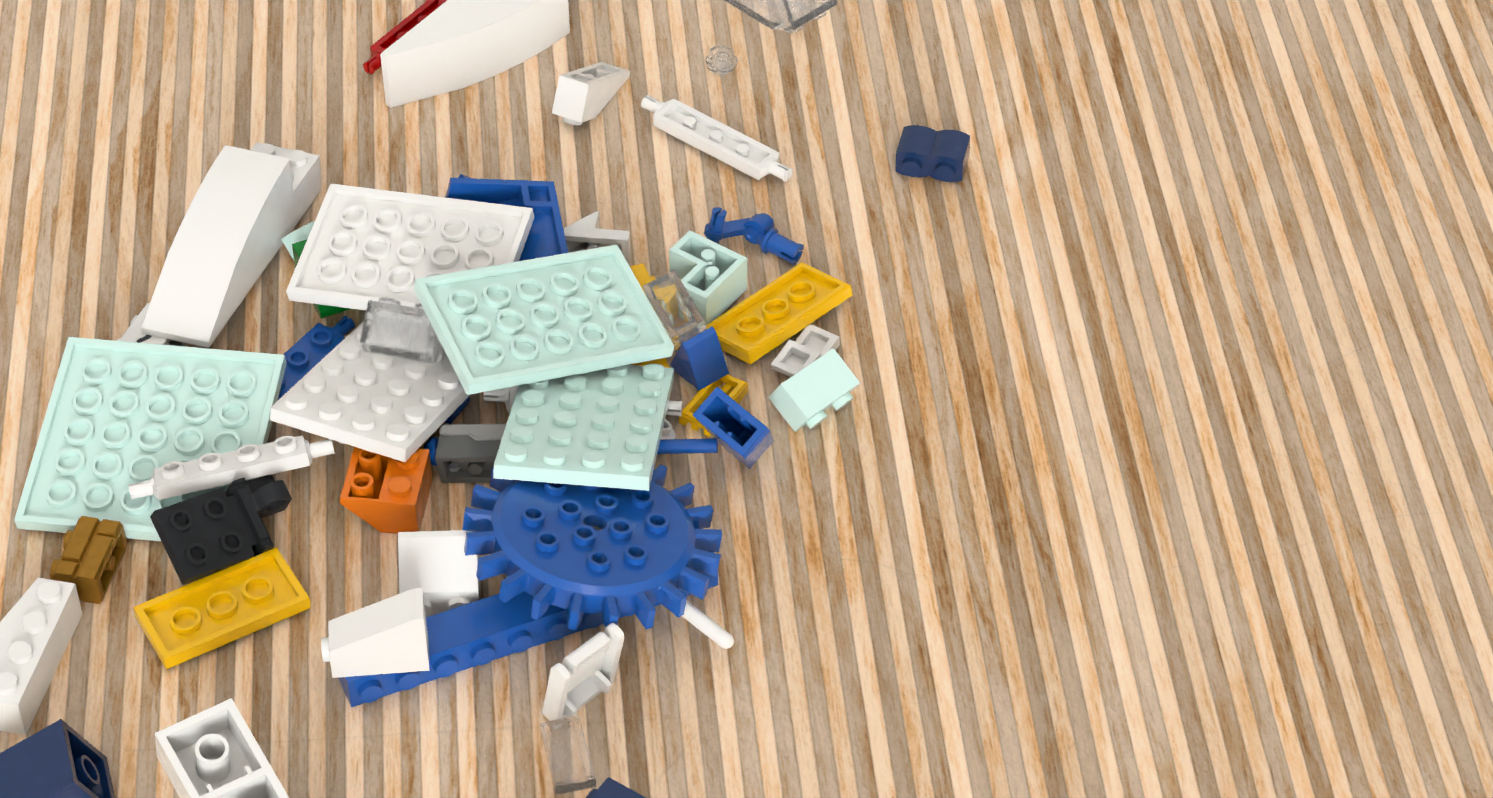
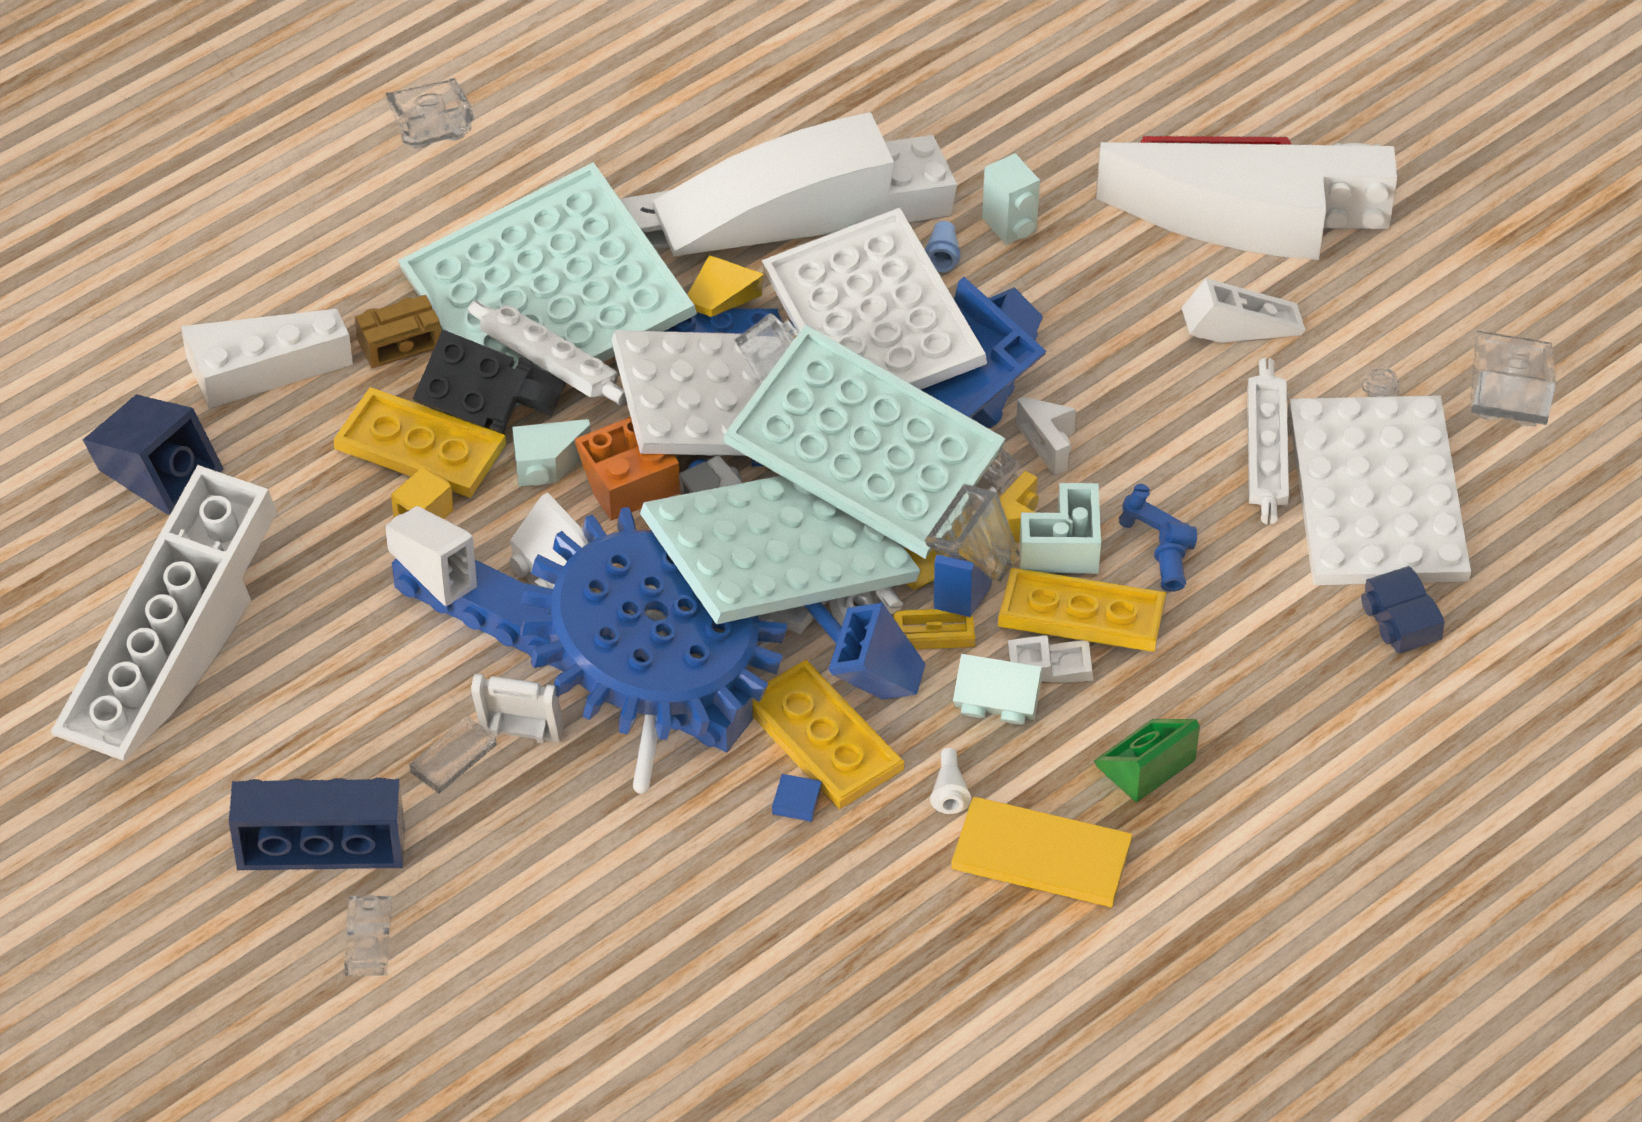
camera: 55 degrees right, 5 degrees up
(275, 328) = (724, 286): none -> yellow slope
(290, 636) = (426, 491): none -> yellow brick
(316, 533) = (546, 450): none -> light aqua slope
(362, 138) = (1010, 199): none -> light aqua brick
(769, 515) = (825, 735): none -> yellow tile
(804, 563) = (796, 797): none -> blue tile
(811, 112) = (1378, 489): none -> white plate
(880, 470) = (950, 790): none -> white cone
(942, 345) = (1151, 755): none -> green slope
(975, 453) = (1042, 851): none -> yellow tile

